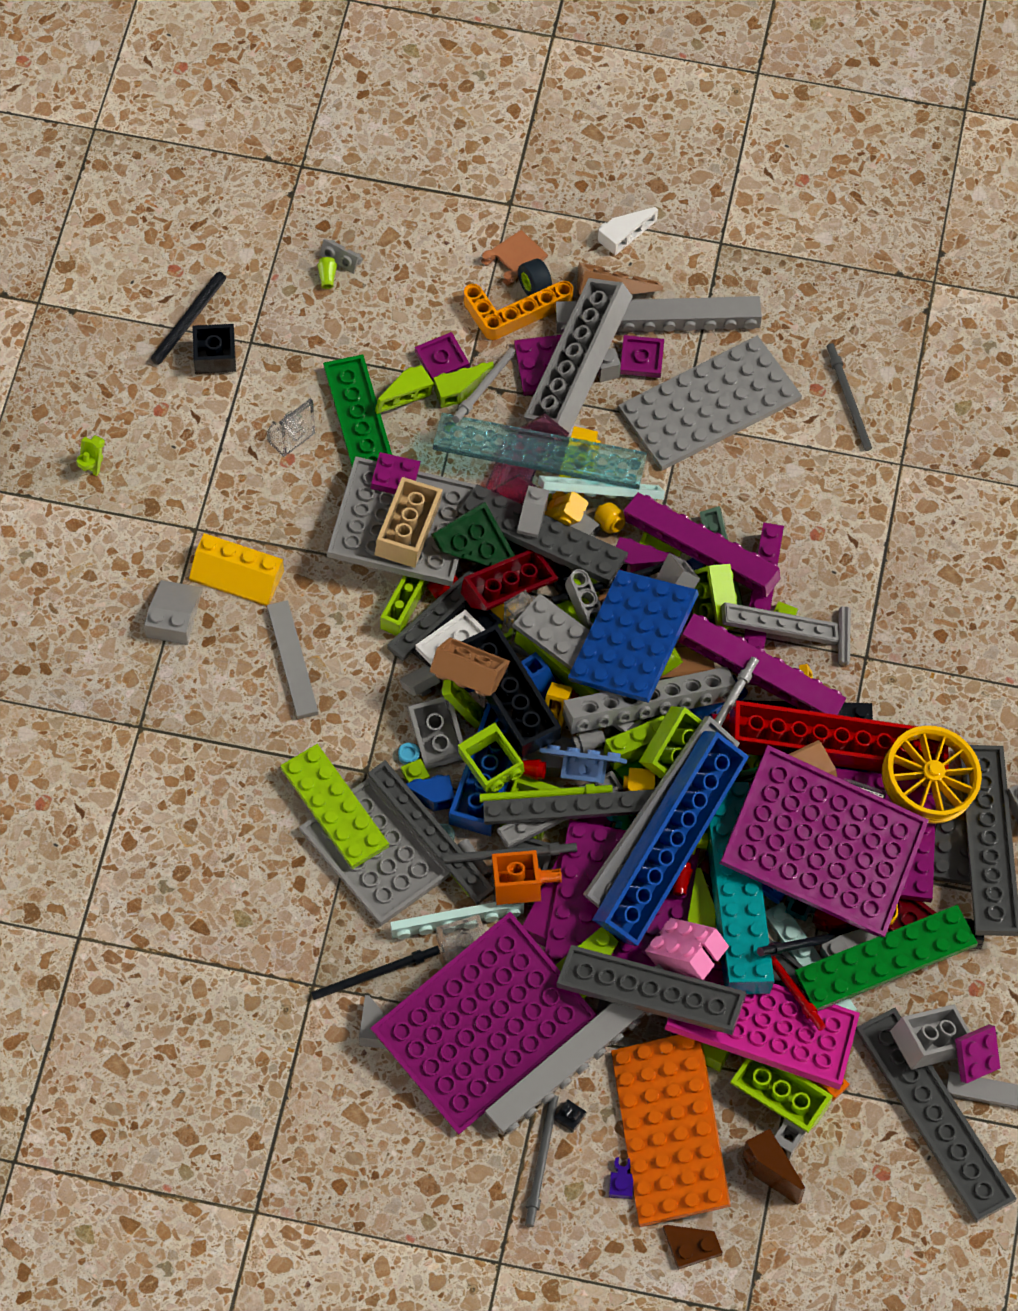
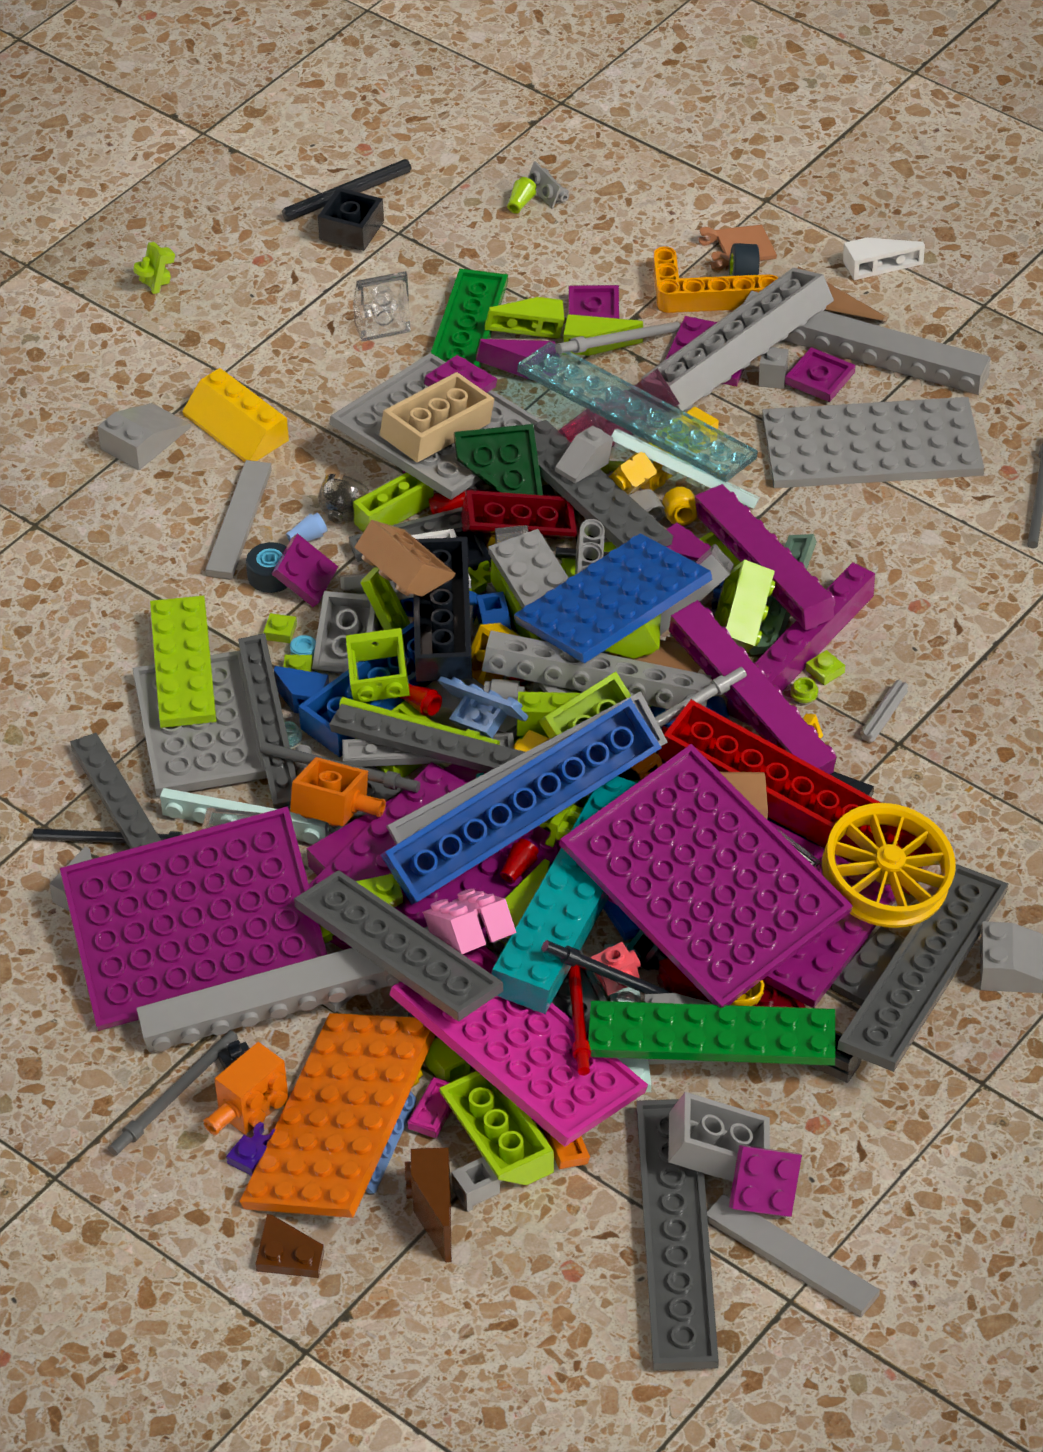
camera: 30 degrees right, 15 degrees down
(348, 702) = (260, 565): none -> black wheel
(352, 648) = (309, 528): none -> light blue cone
(359, 943) = (114, 791): none -> dark grey plate
(364, 615) = (337, 497): none -> clear smoke cylinder
(375, 688) = (305, 570): none -> magenta plate
(381, 743) = (280, 628): none -> lime plate
(416, 430) = (507, 353): none -> magenta slope
(600, 1141) = (249, 1090): none -> orange brick
(724, 1093) = (431, 1110): none -> dark pink plate
(779, 623) = (806, 661): light grey tile -> none
(781, 643) = (804, 690): none -> lime plate
(791, 929) = (618, 958): none -> coral brick

